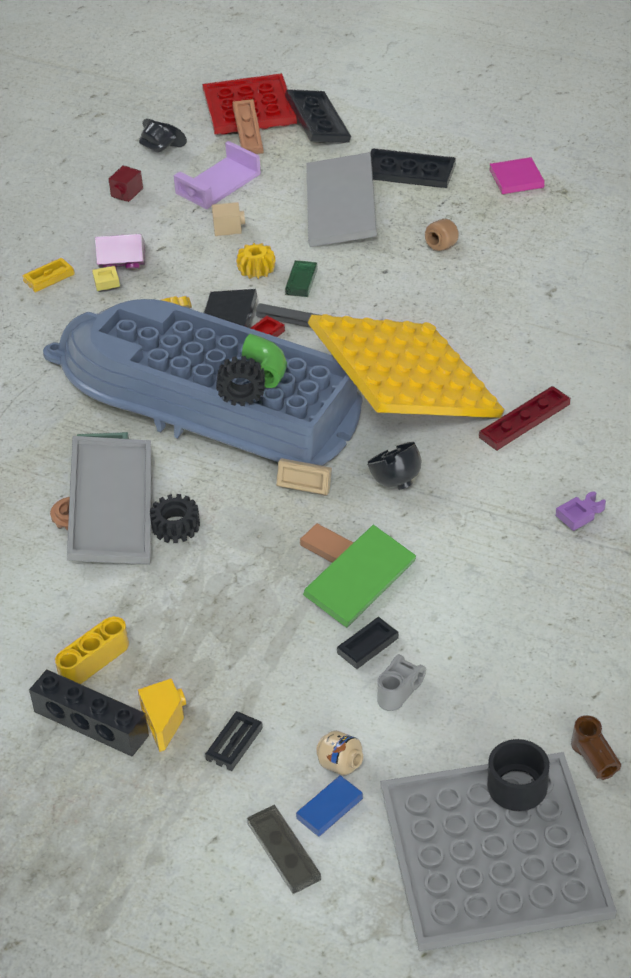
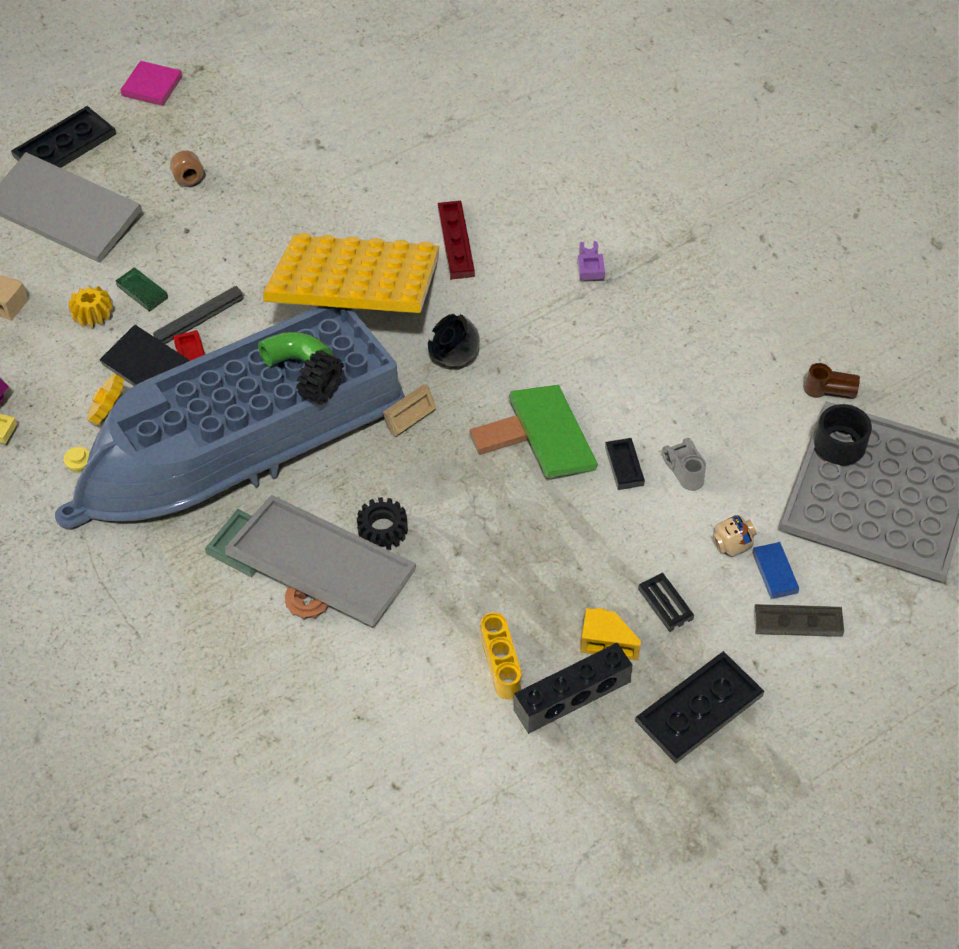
camera: 60 degrees left, 10 degrees up
(136, 816) = (699, 707): none -> black tile

